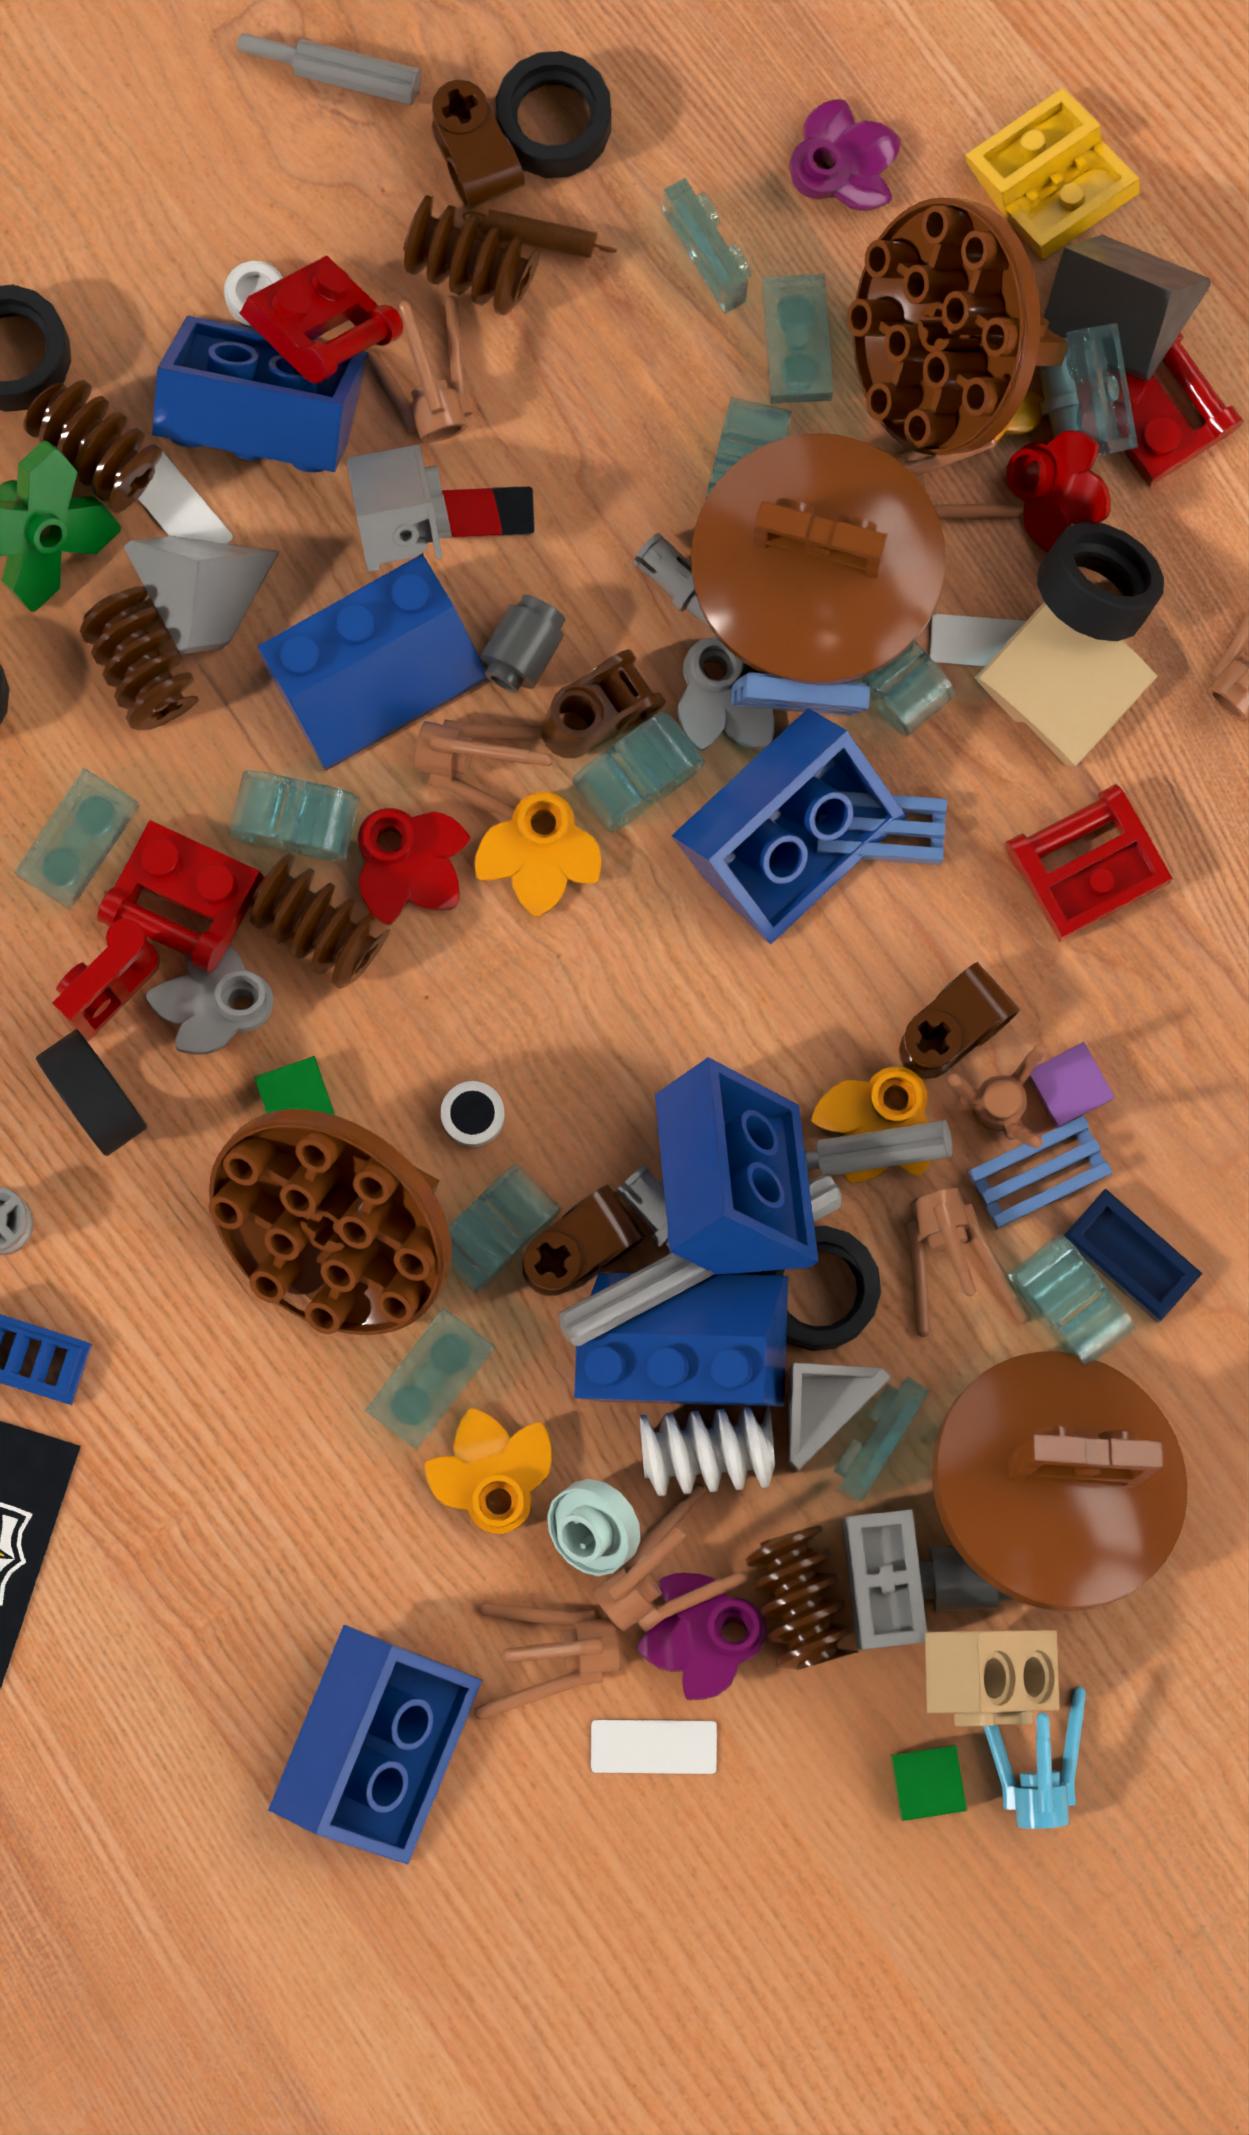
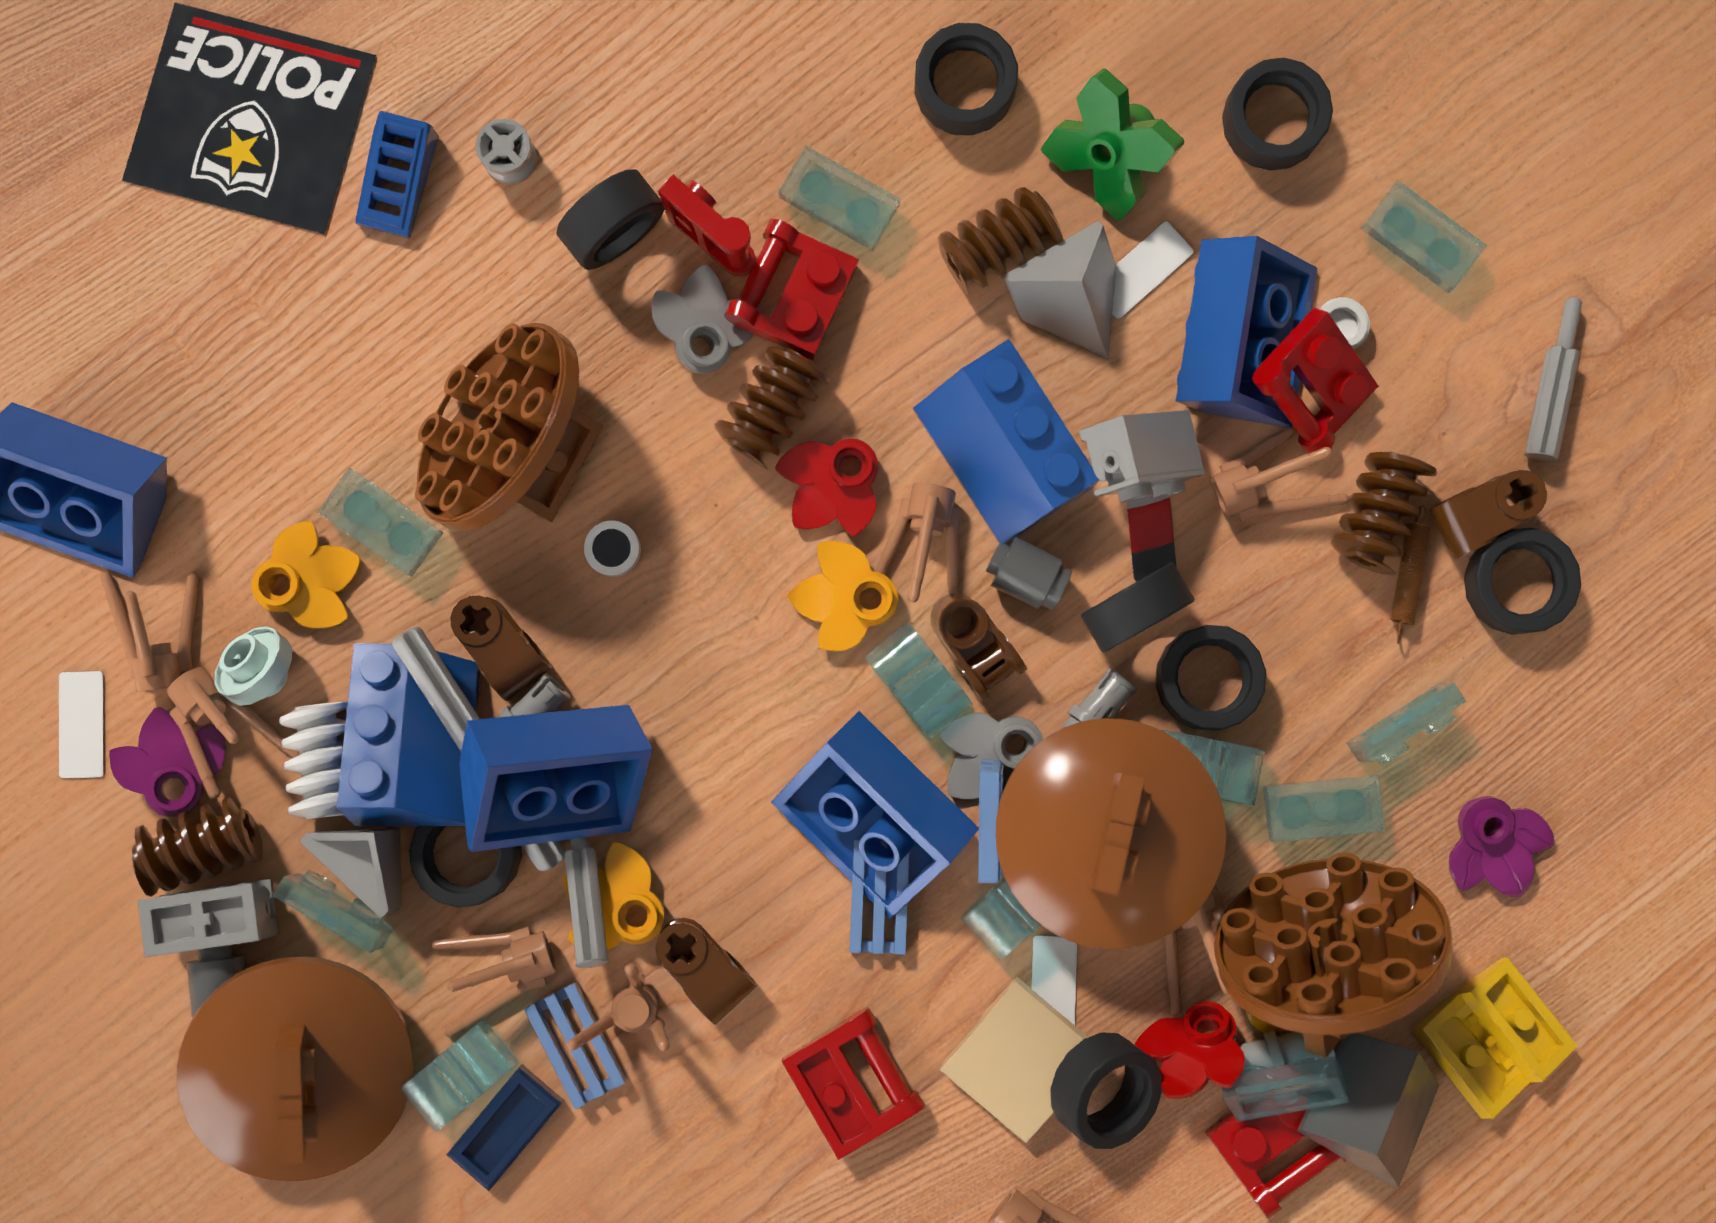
camera: 90 degrees right, 5 degrees up
(94, 444) = (1191, 189): reddish brown piece -> none
(160, 197) = (1423, 236): none -> clear light blue plate
(294, 815) = (866, 382): clear light blue beam -> none
(295, 1087) = (622, 396): green tile -> none
(499, 1227) = (510, 573): clear light blue beam -> none
(567, 522) = (1137, 607): none -> black tyre
(650, 406) = (1252, 682): none -> black tyre
(928, 1782) = (49, 959): green tile -> none
(992, 1675) = (125, 1012): tan brick -> none
(1043, 1793) = (39, 1057): medium azure plant -> none
(1070, 1085) = (652, 1072): medium lavender tile -> none

